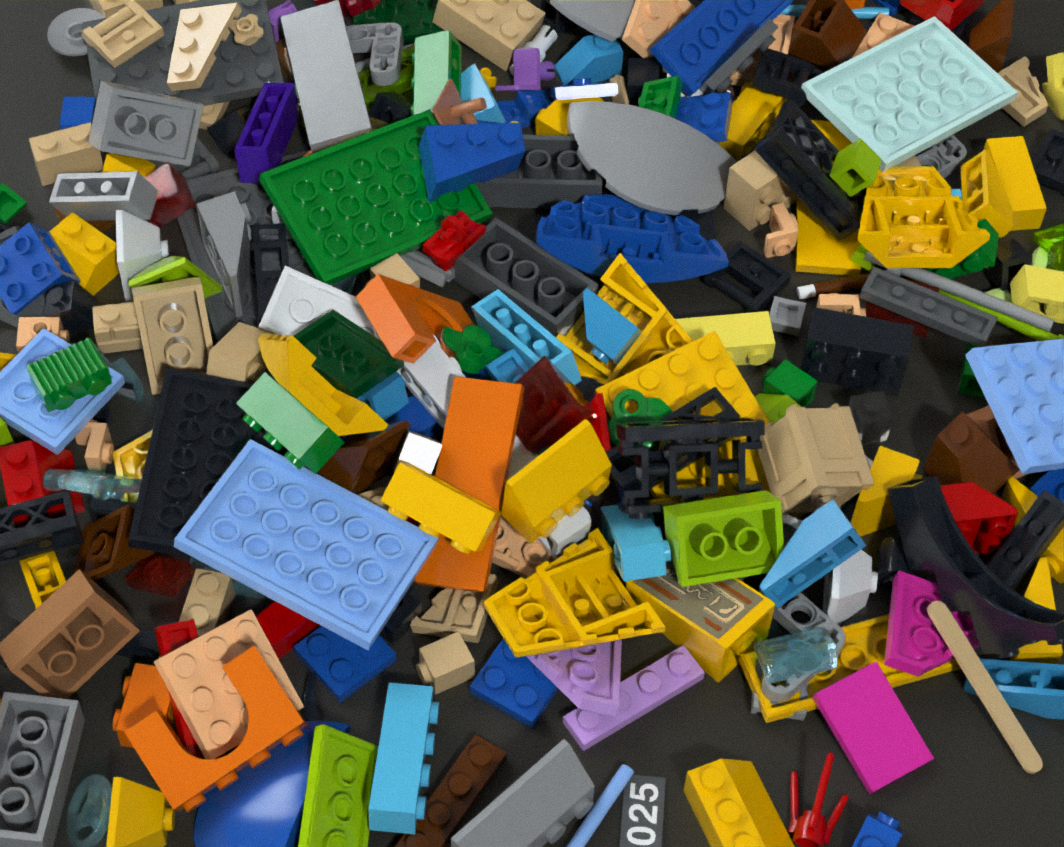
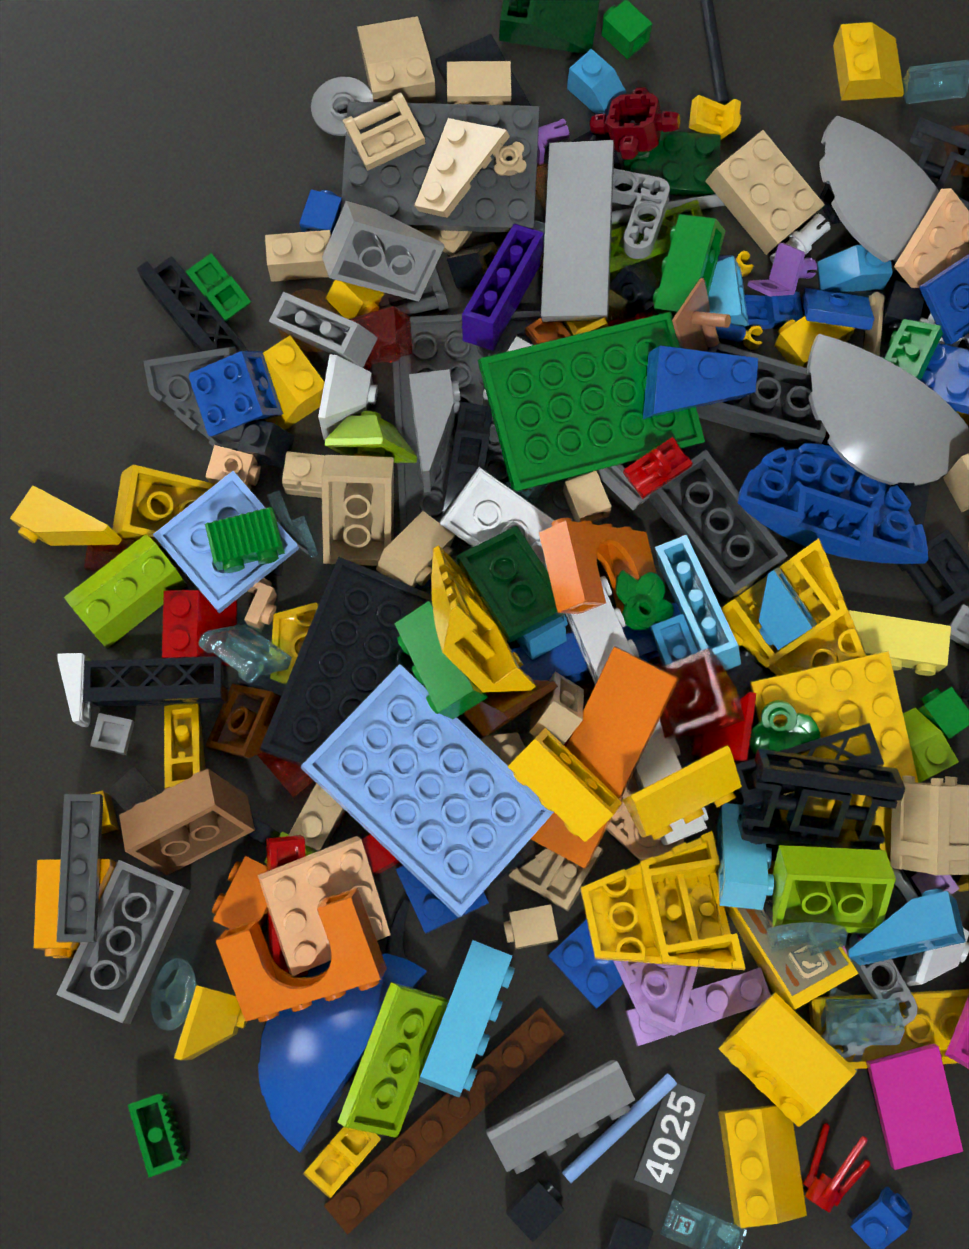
camera: 15 degrees right, 20 degrees up
(723, 578) = (817, 936): none -> clear light blue slope
(733, 708) = (787, 1059): none -> yellow slope

